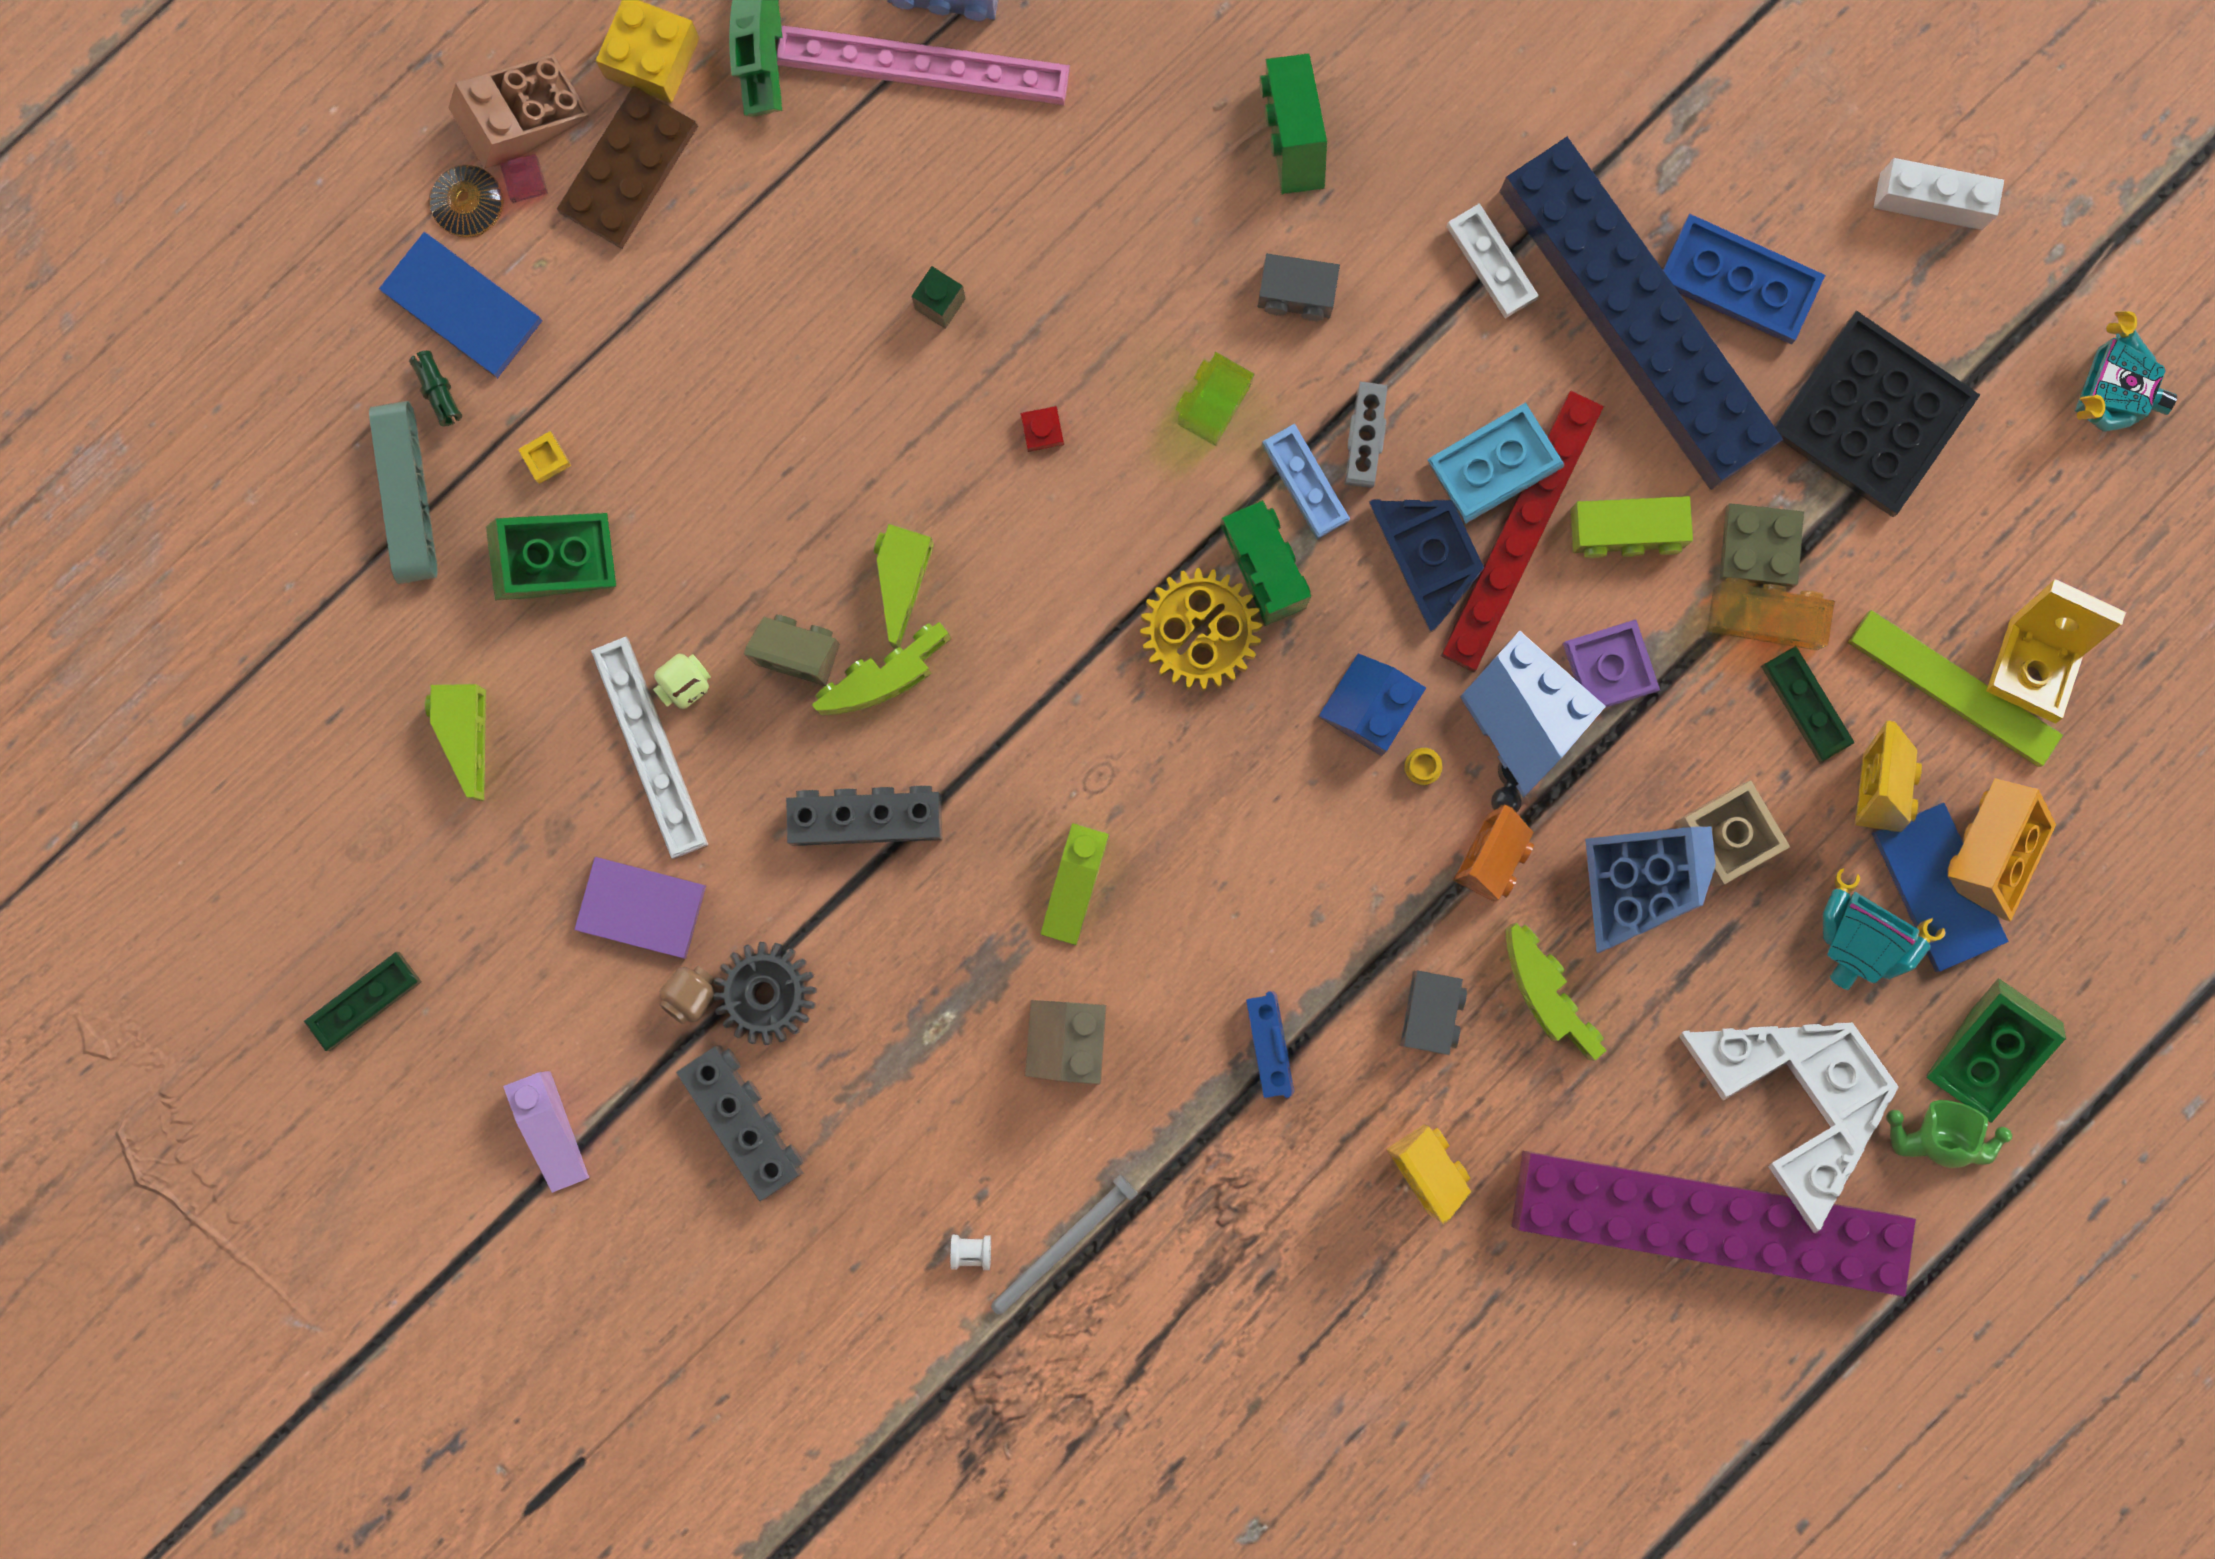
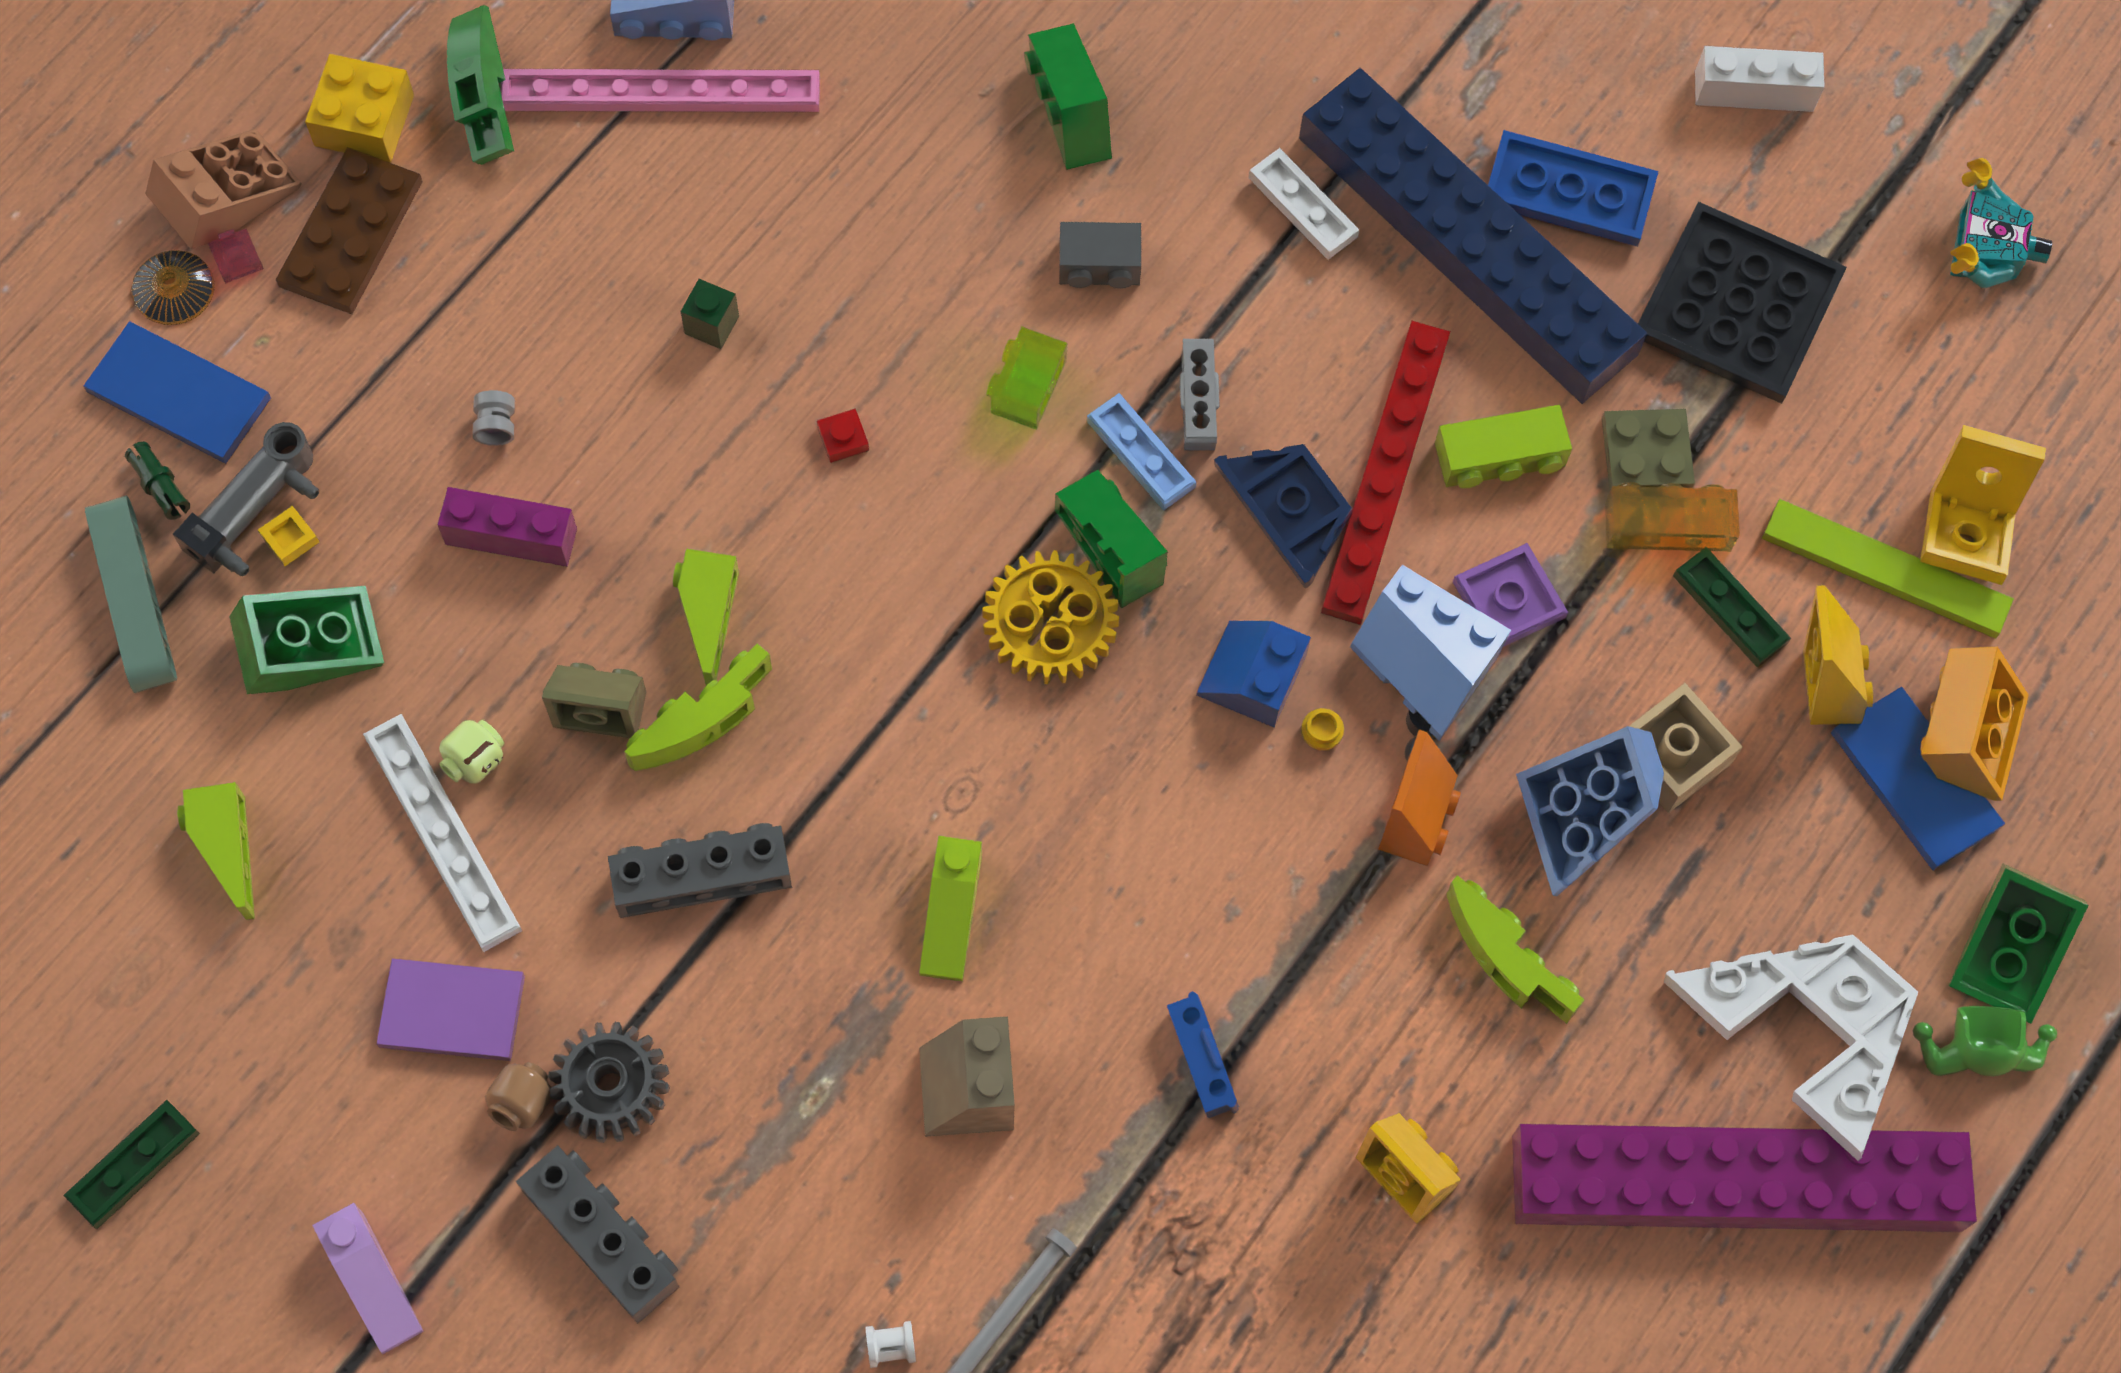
camera: 15 degrees left, 15 degrees down
(511, 416) = (212, 532): none -> dark grey piece
(735, 370) = (493, 417): none -> light grey wheel
(735, 477) = (507, 526): none -> magenta brick
(1433, 1012) = (1381, 992): dark grey brick -> none
(1495, 462) = (1344, 402): medium azure tile -> none
(1869, 938) = (1851, 837): teal torso -> none

